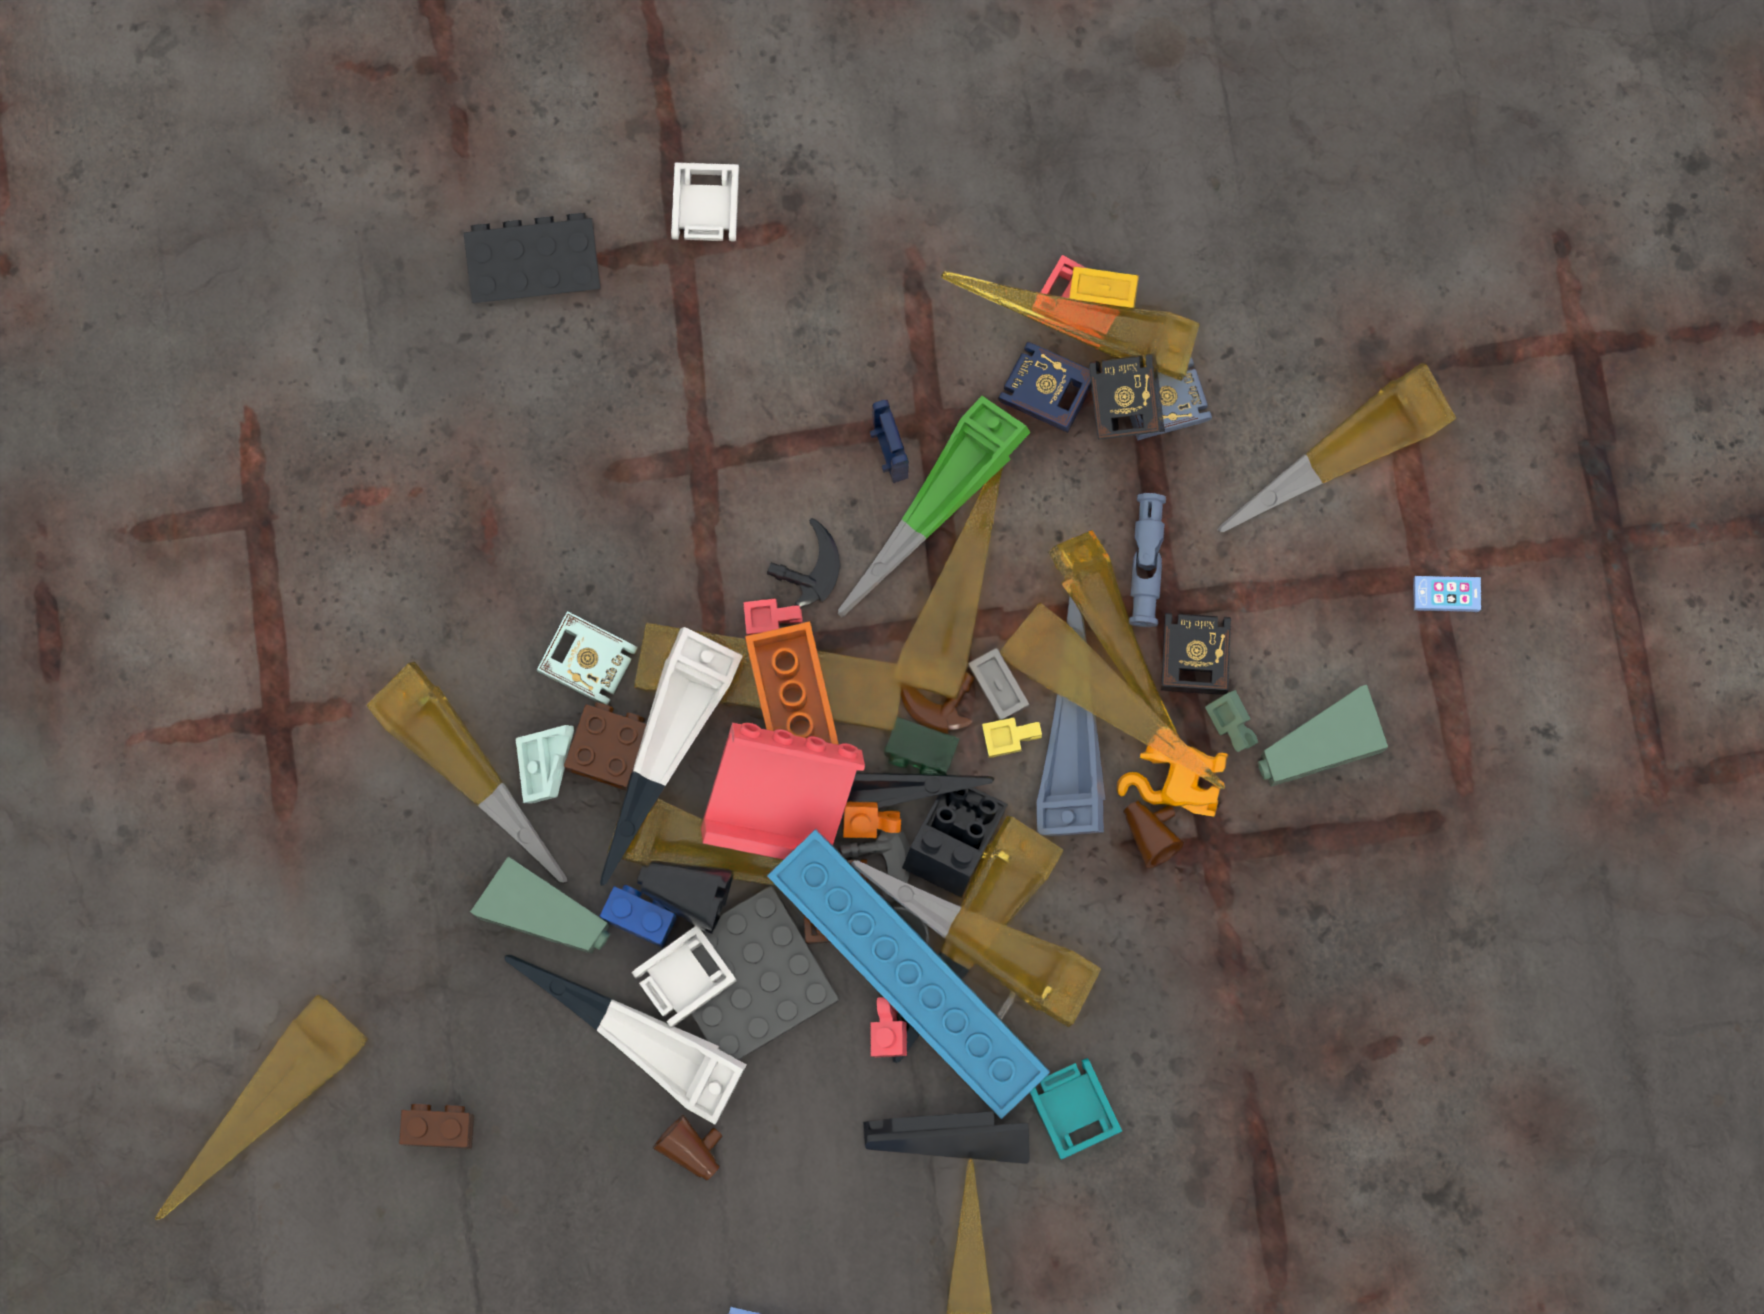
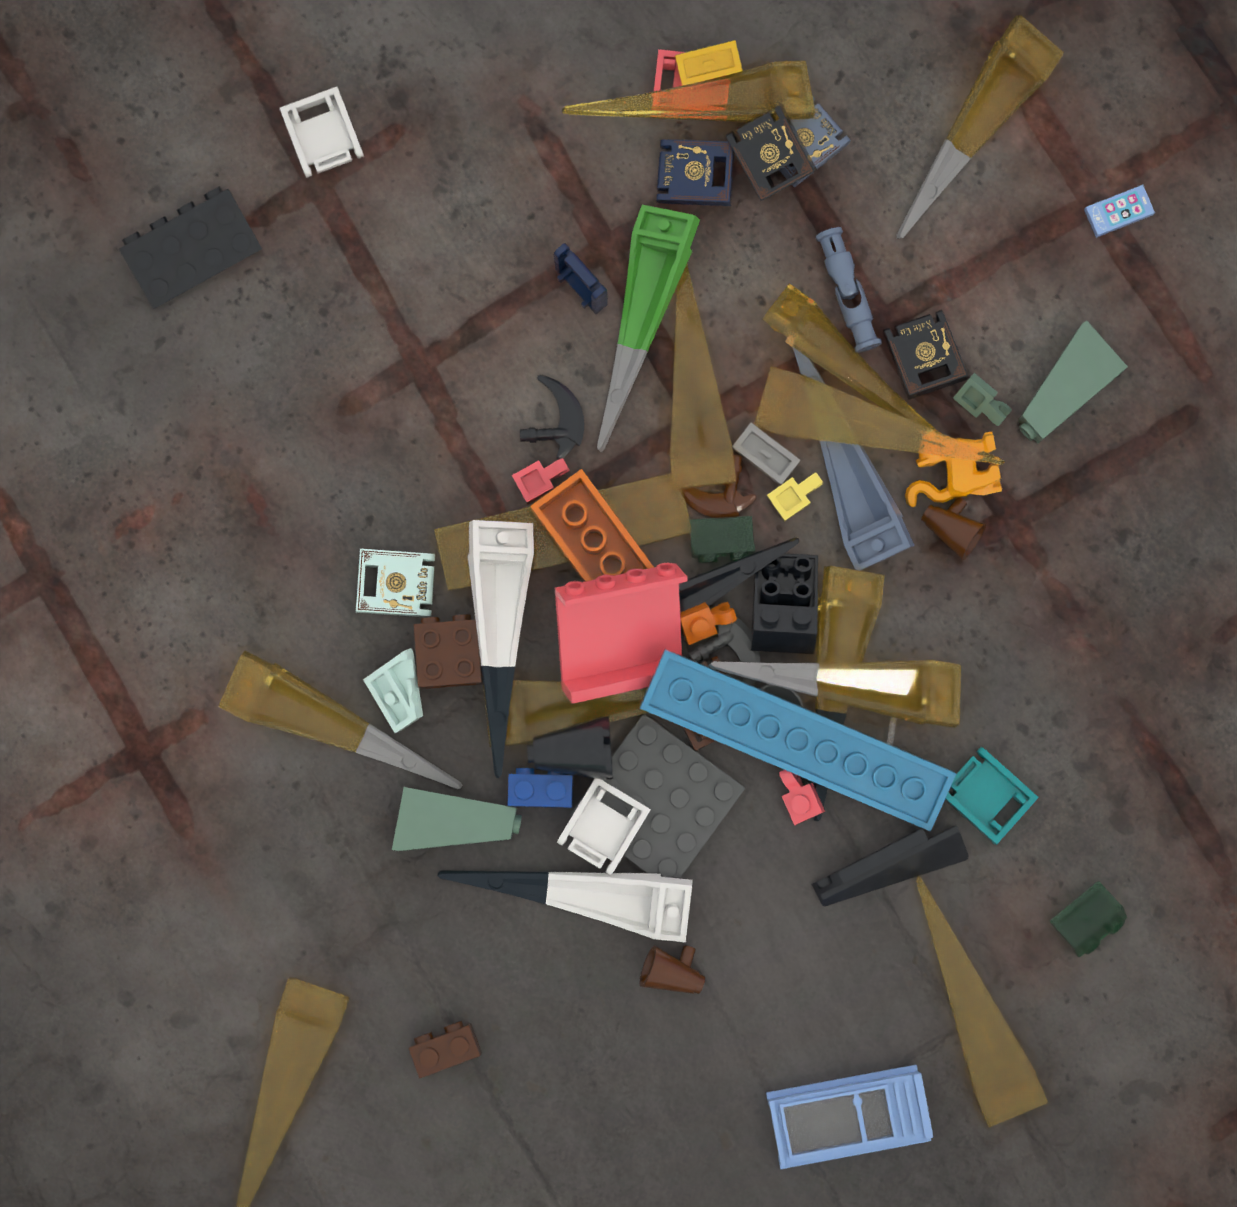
camera: 25 degrees left, 5 degrees up
(1121, 1273) = (1089, 919): none -> clear green bracket

